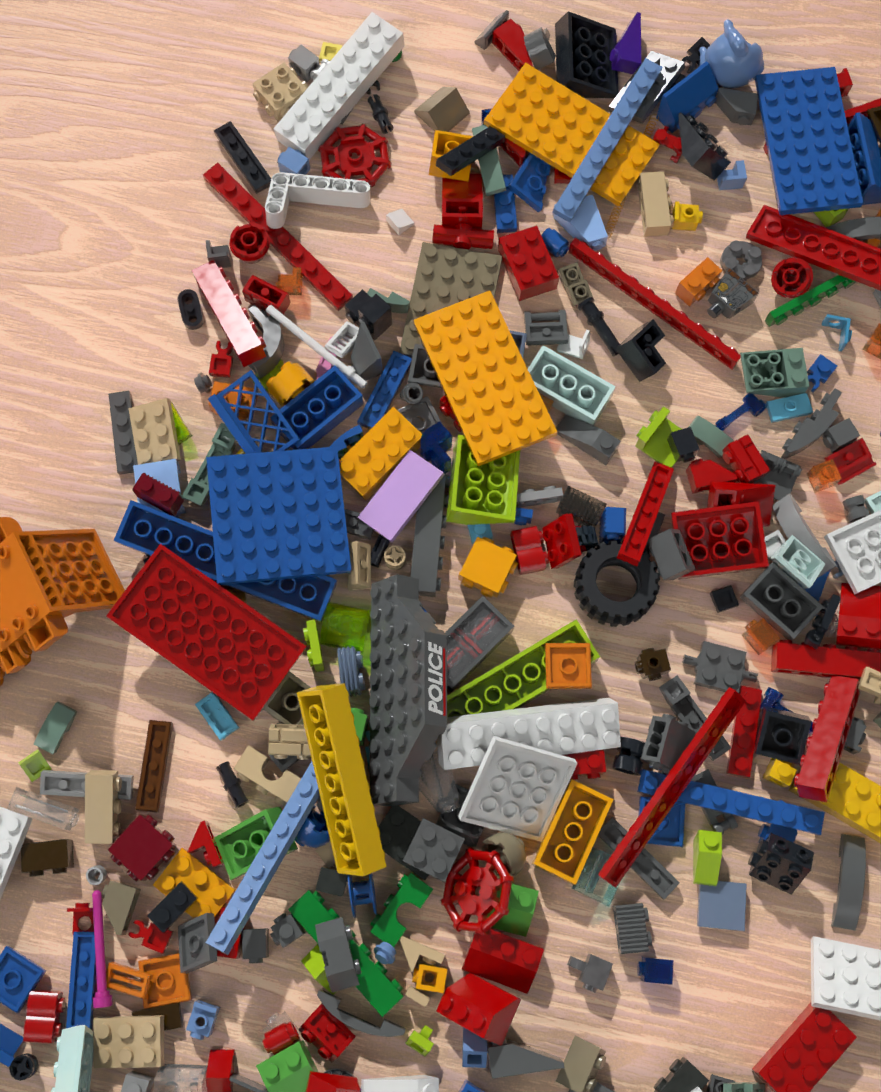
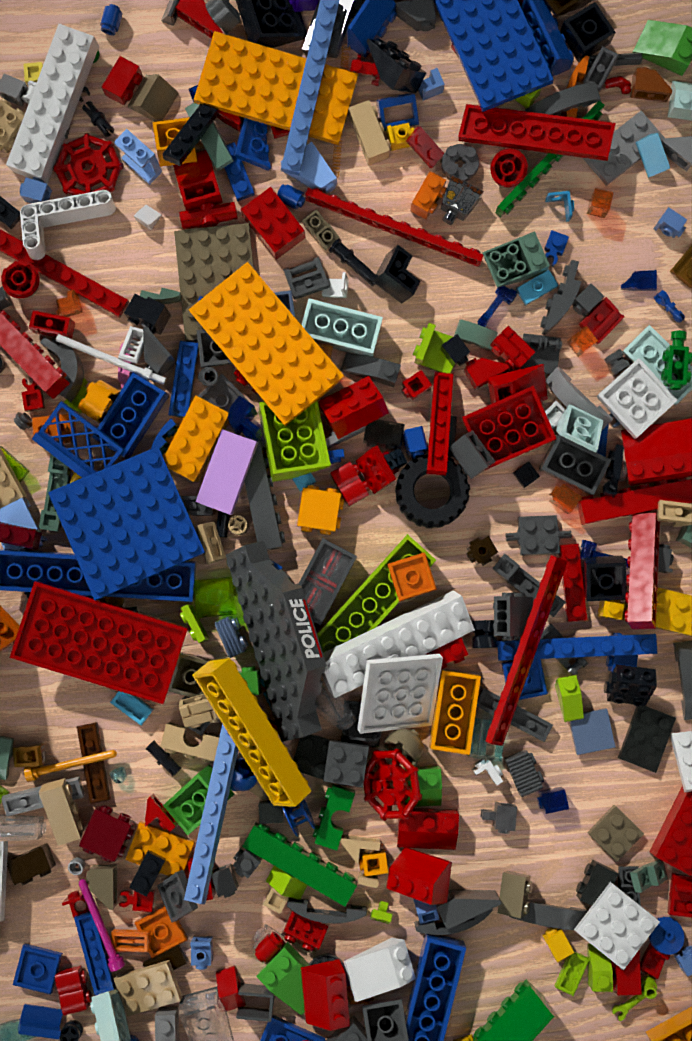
camera: 15 degrees left, 10 degrees up
(85, 755) = (33, 773): none -> light orange piece
(87, 734) = (29, 756): none -> pearl gold slope
(177, 788) = (118, 775): none -> clear light blue hinge
(305, 986) = (275, 901): none -> tan plate
(337, 956) = (289, 866): dark grey brick -> none
(385, 953) = (331, 856): medium blue plate -> none
(412, 160) = (138, 156): none -> light blue panel
(416, 85) = (122, 81): none -> red brick
(424, 26) = (111, 19): none -> blue brick
(502, 1083) = (440, 929): none -> dark grey slope
(557, 470) = (353, 407): none -> red brick
(596, 915) = (493, 771): none -> white bracket
(635, 464) = (417, 379): none -> red brick
(694, 181) = (394, 101): none -> blue tile
(709, 233) = (425, 147): none -> red plate
(718, 1033) = (615, 833): none -> dark tan plate
(783, 933) = (646, 738): none -> pearl dark grey plate

